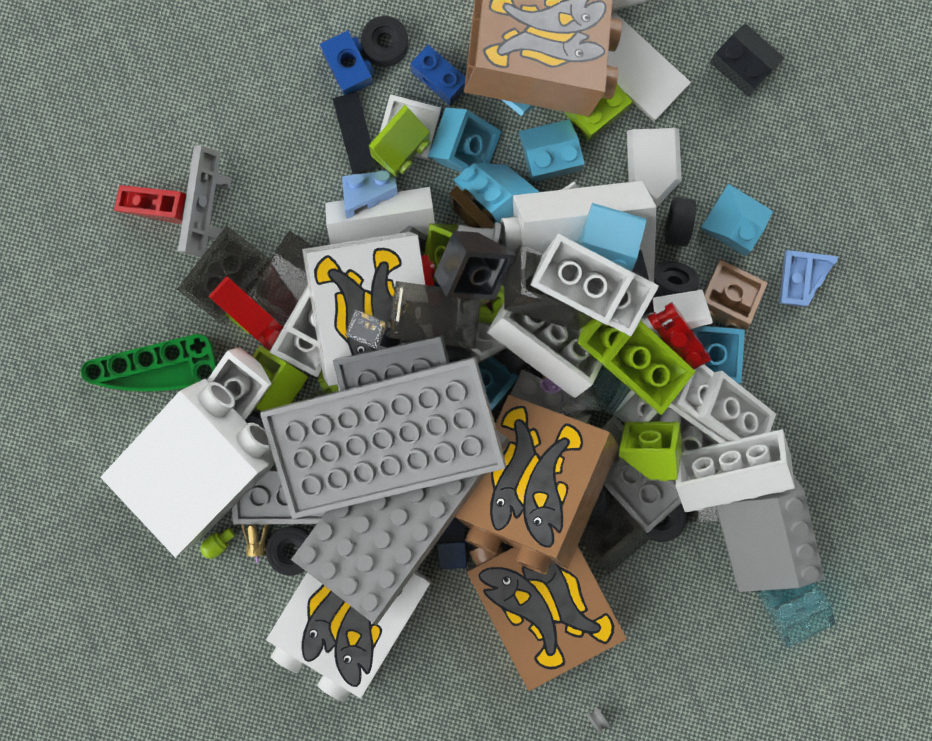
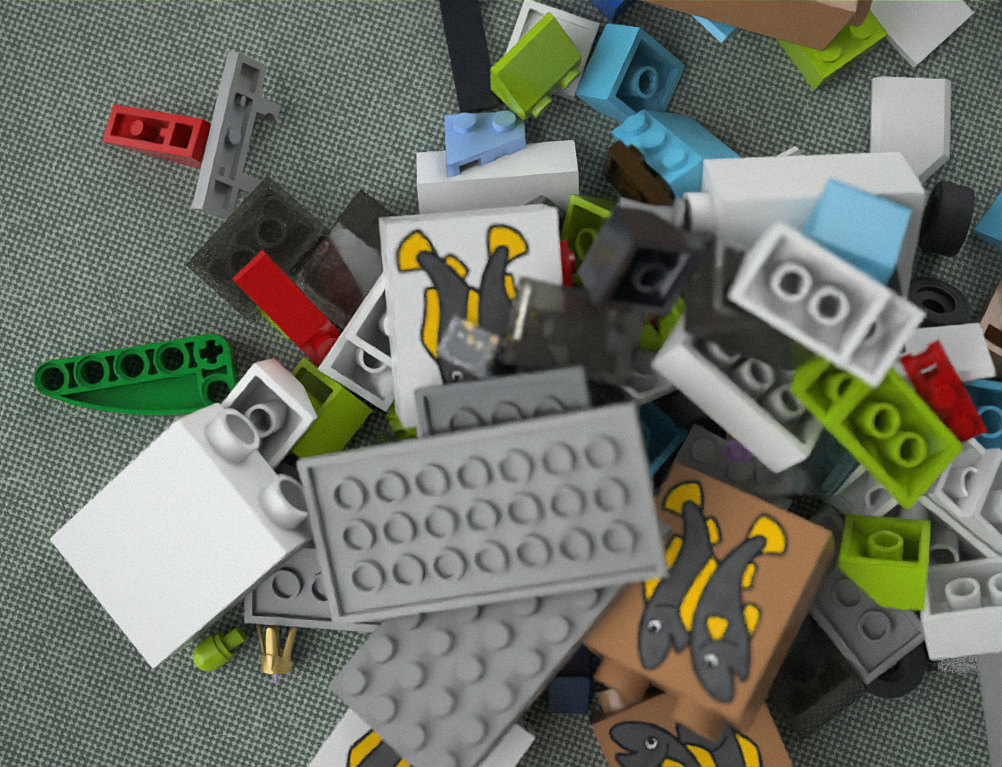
camera: 10 degrees right, 0 degrees up
(275, 550) = (304, 666): black tyre -> none
(551, 150) = (760, 99): medium azure slope -> none

